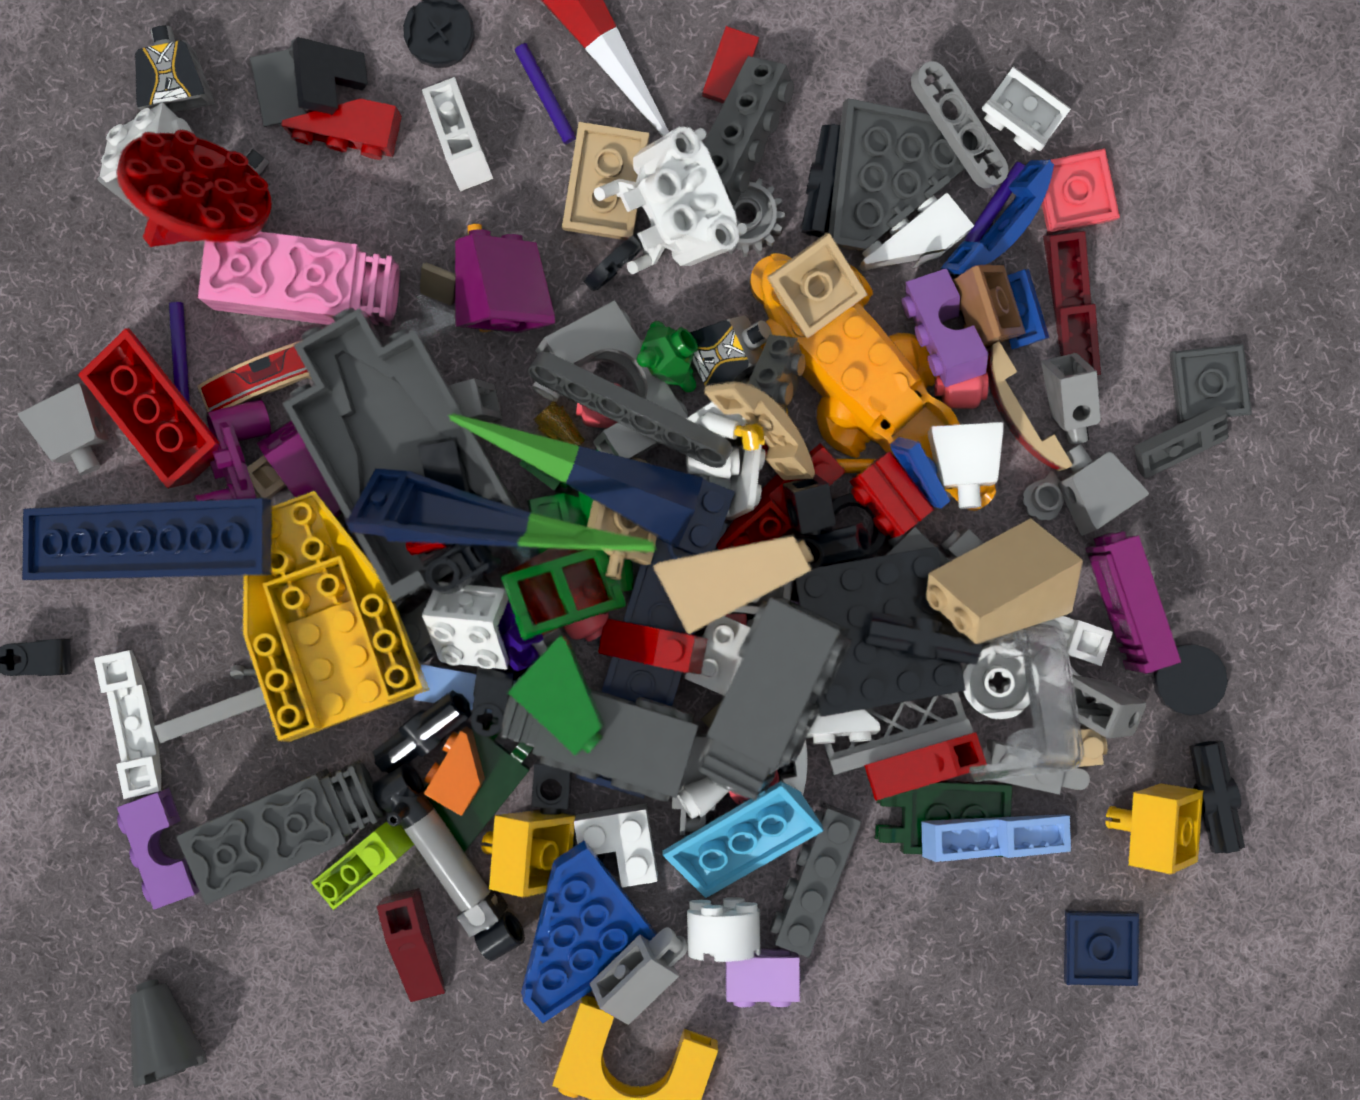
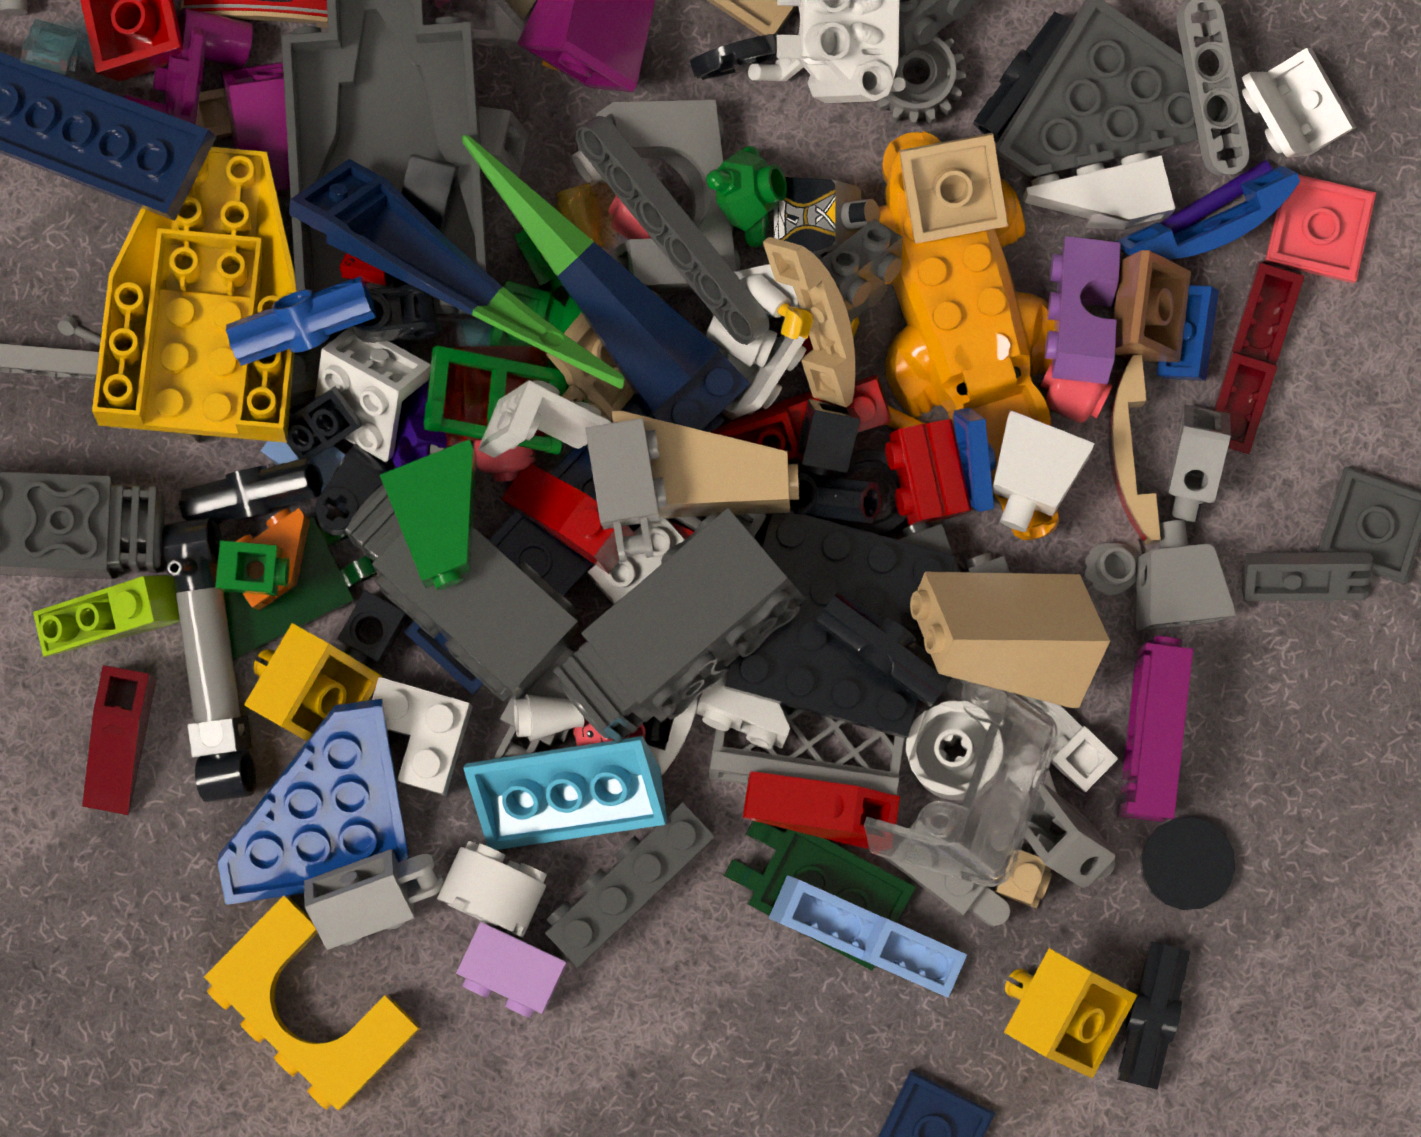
camera: 20 degrees right, 5 degrees down
(127, 484) = (53, 47): none -> clear light blue slope
(396, 606) = (300, 321): none -> blue piece
(438, 802) = (235, 562): none -> green brick
(447, 666) = (321, 424): none -> black slope
(587, 595) = (538, 407): none -> white bracket
(689, 616) = (625, 481): none -> light grey brick

